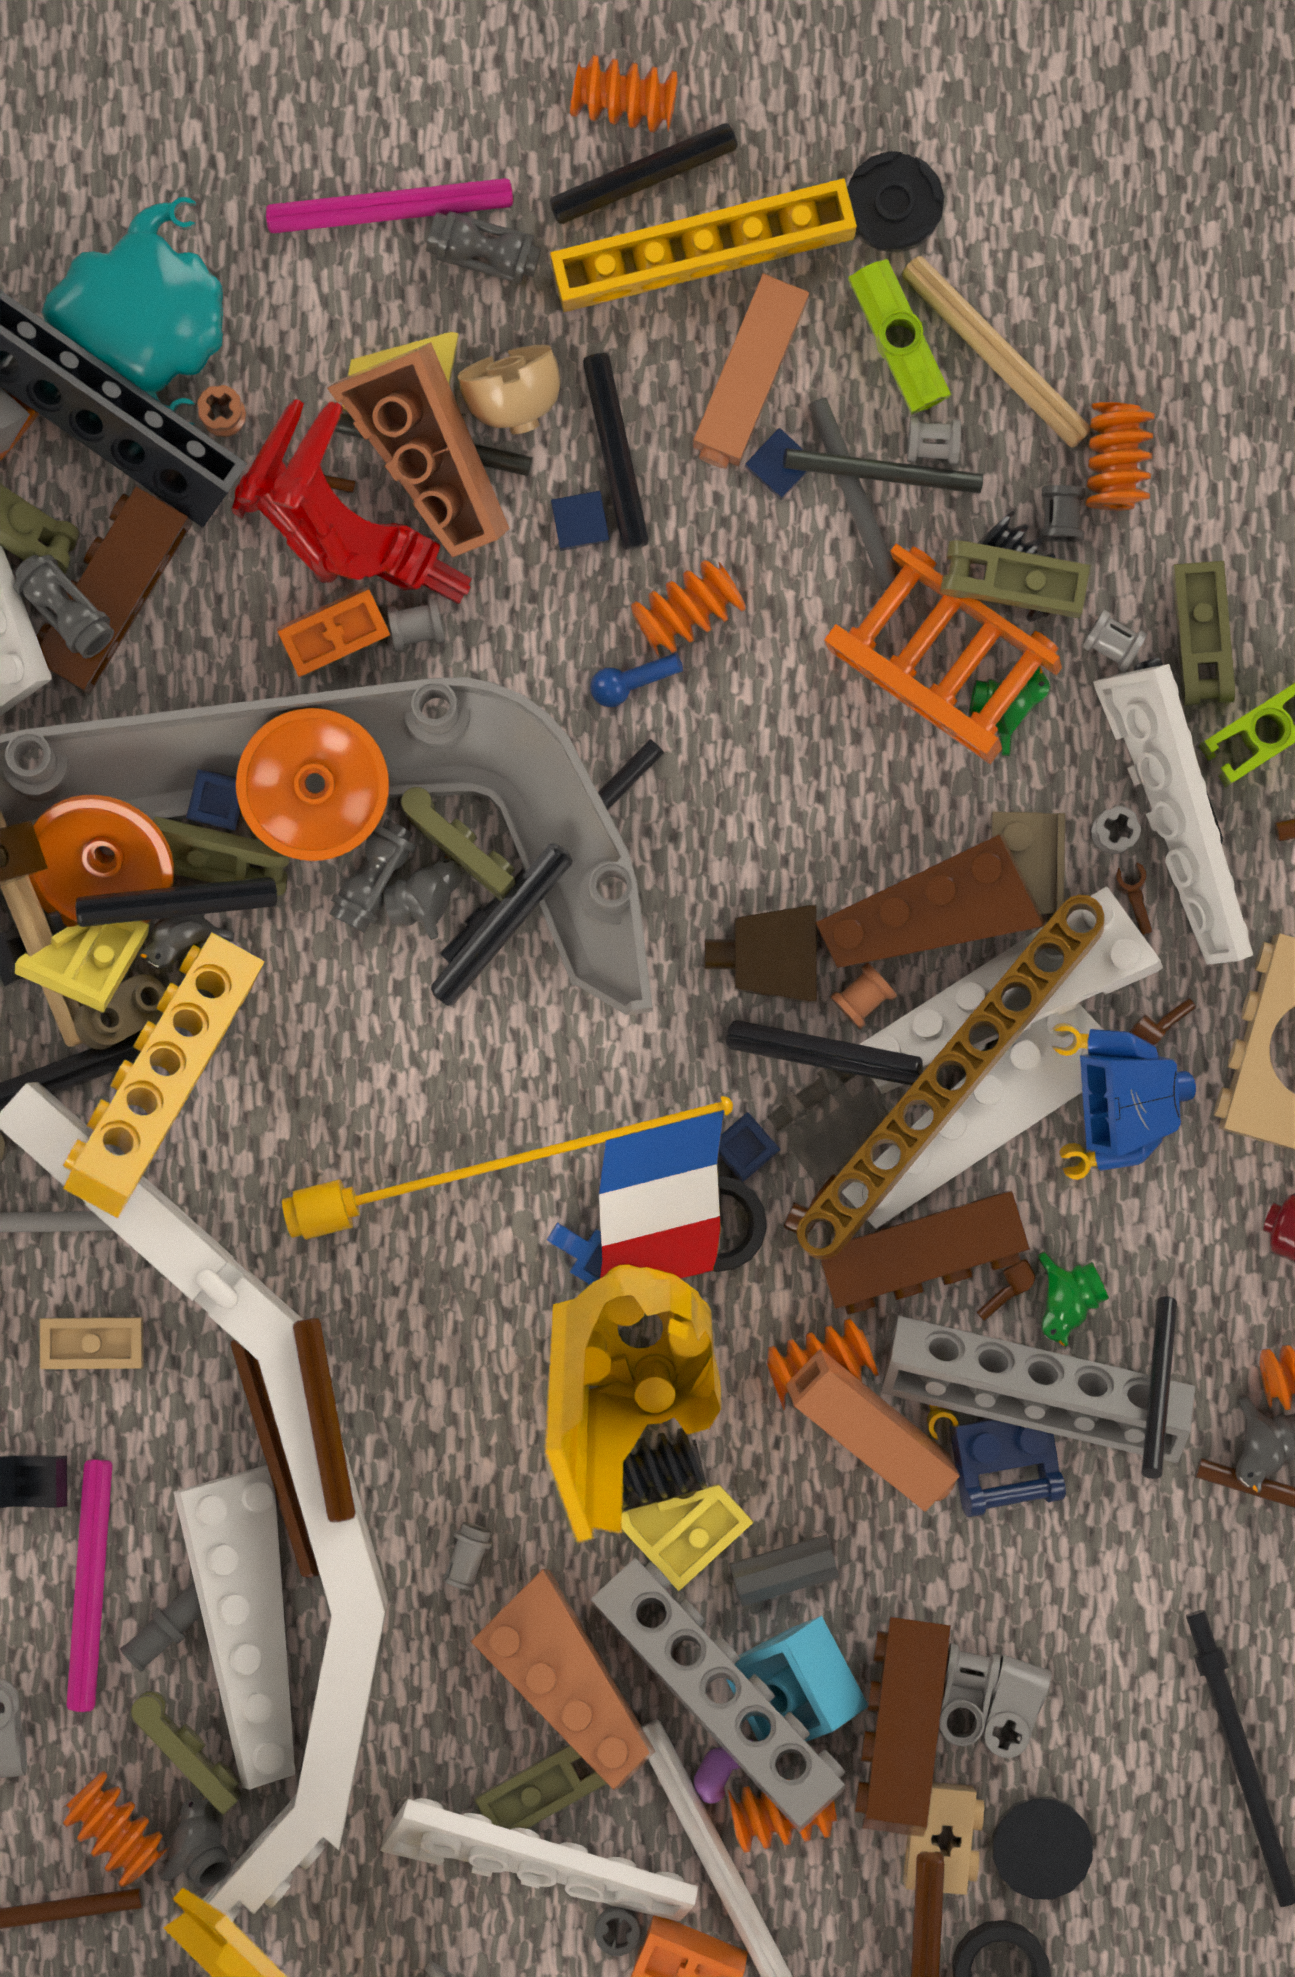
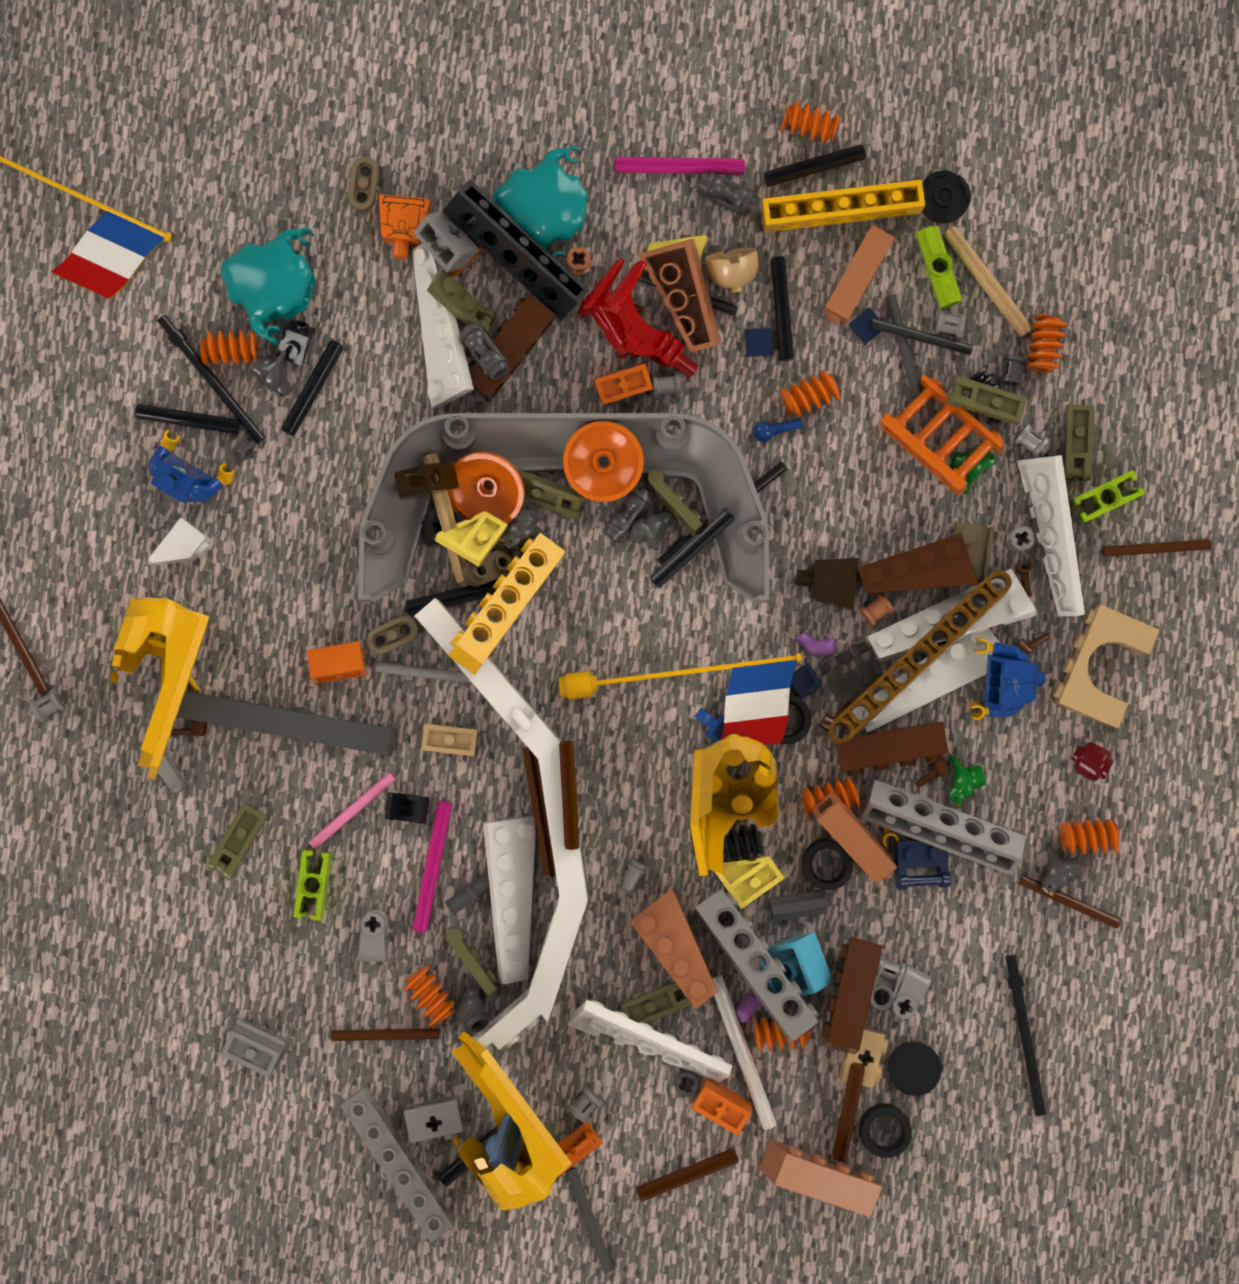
camera: 10 degrees right, 0 degrees up
(176, 901) = (523, 514): black axle -> none
(214, 800) = (550, 463): dark blue tile -> none
(761, 1081) = (817, 648): none -> medium lavender arm
(824, 1052) = (853, 636): black axle -> none
(828, 1524) = (832, 884): none -> black tyre
(1159, 1388) = (1008, 835): black bar -> none

